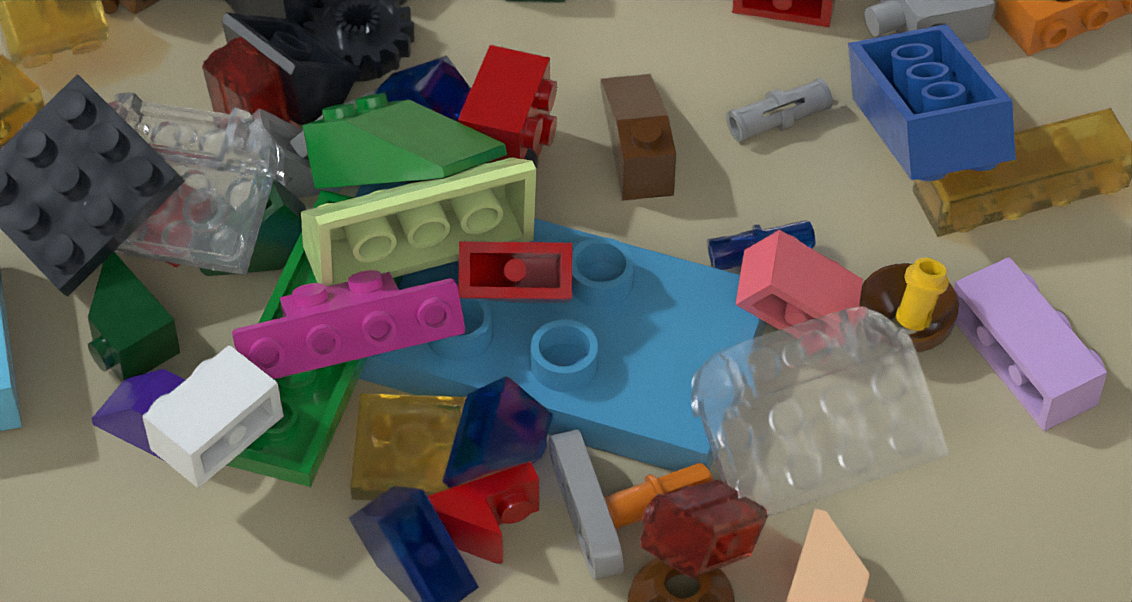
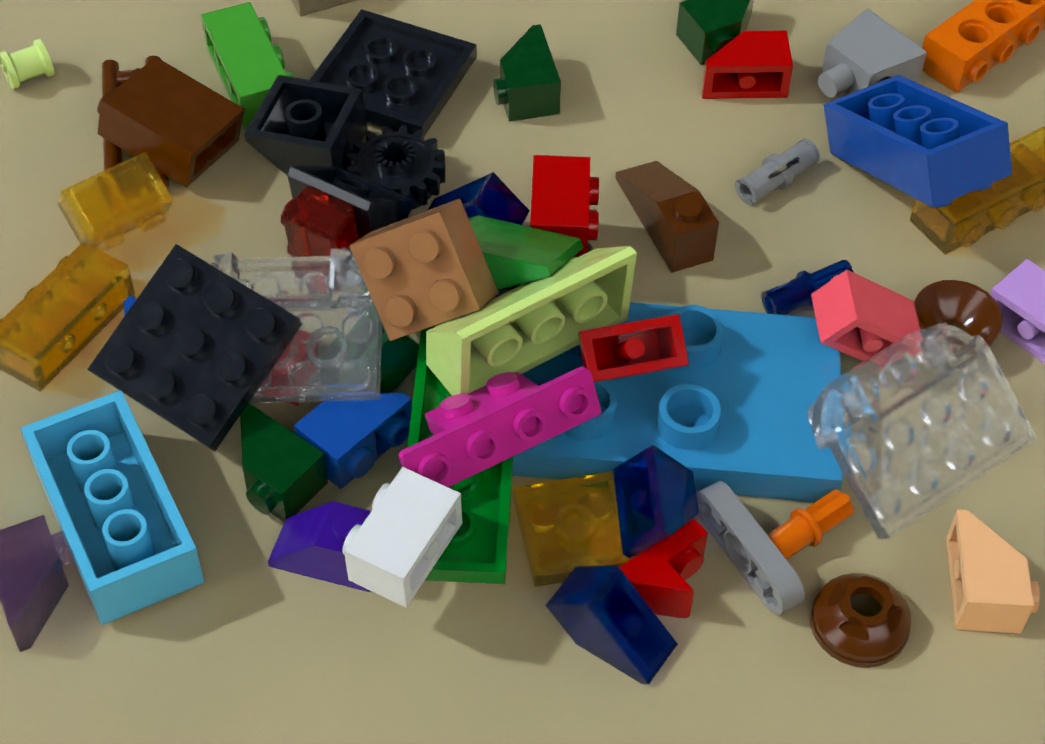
camera: 15 degrees left, 0 degrees up
(212, 305) = (356, 433): none -> blue slope
(318, 147) = (424, 270): none -> medium nougat brick
(702, 527) = (867, 547): clear red brick -> none
(924, 284) = (976, 293): yellow pin -> none

